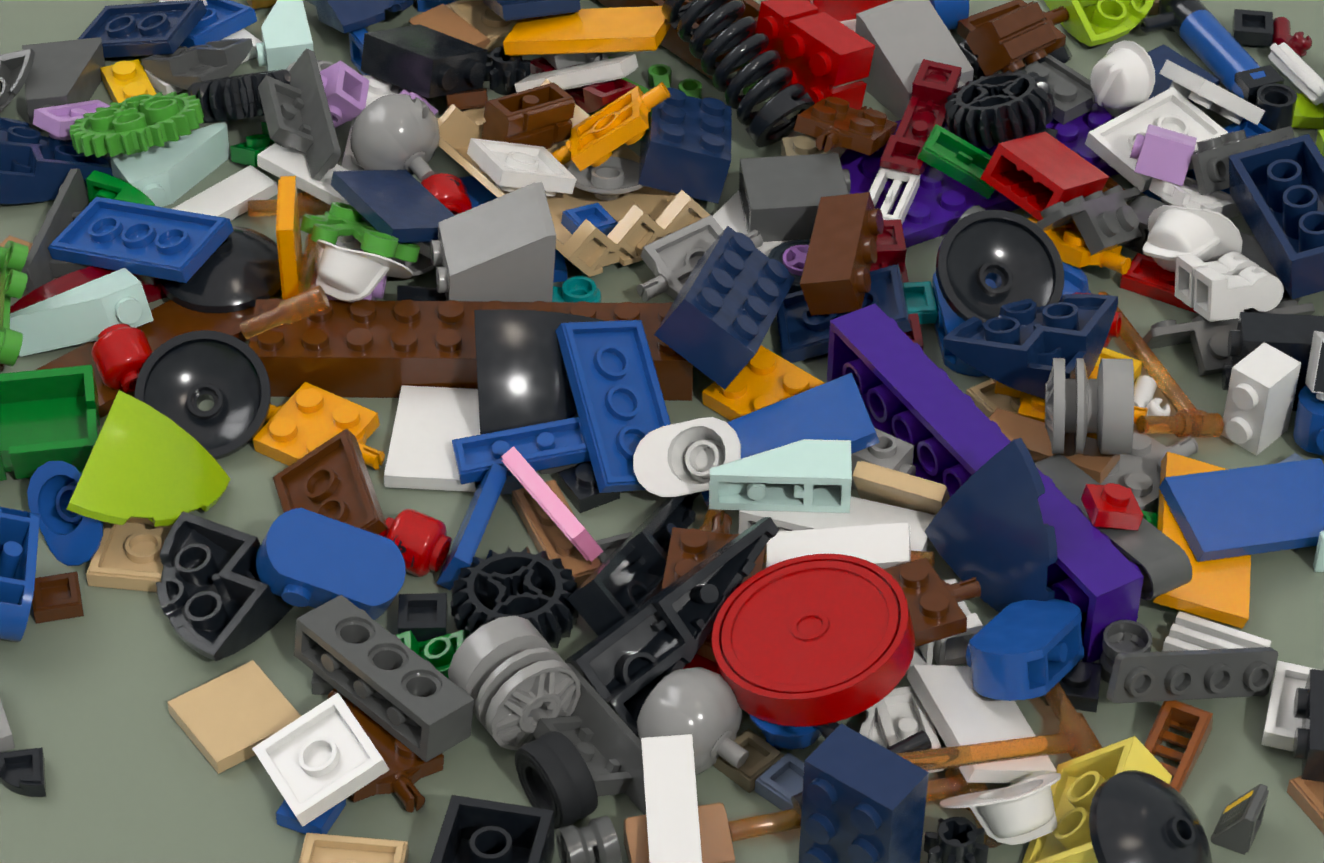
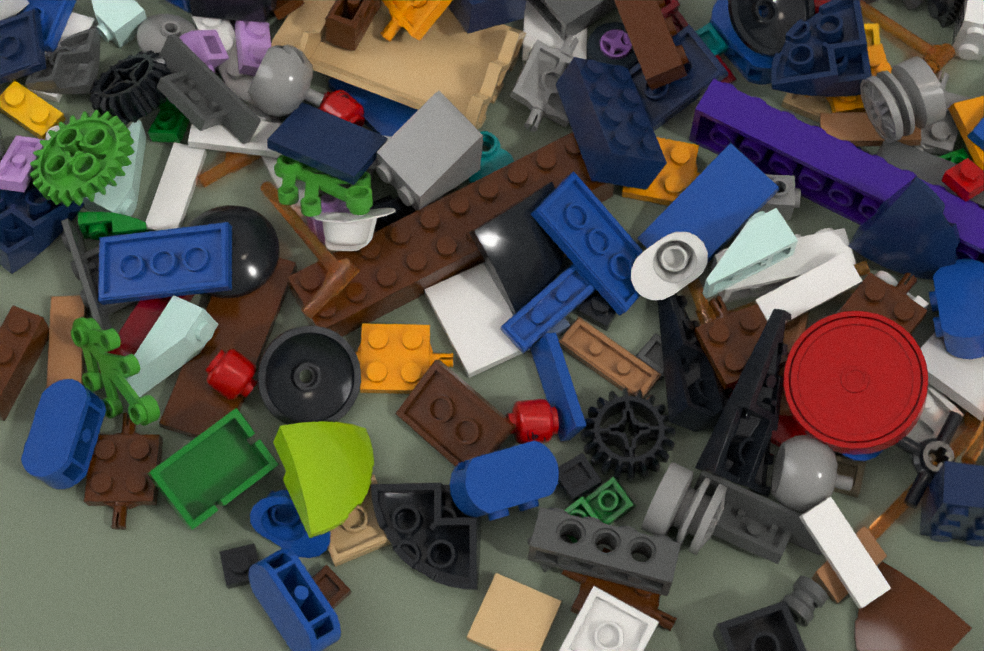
camera: 30 degrees left, 25 degrees up
(288, 236) = (287, 224): light orange tile -> none
(520, 165) = (380, 59): white plate -> none
(551, 504) = (603, 347): bright pink tile -> none
(556, 778) = (758, 567): black tyre -> none
(594, 213) = (452, 81): blue tile -> none
(609, 179) = (442, 39): light grey dish -> none
(781, 781) = (881, 480): sand blue tile -> none
(899, 488) = (822, 221): tan tile -> none
(1143, 397) = (892, 54): white arm -> none

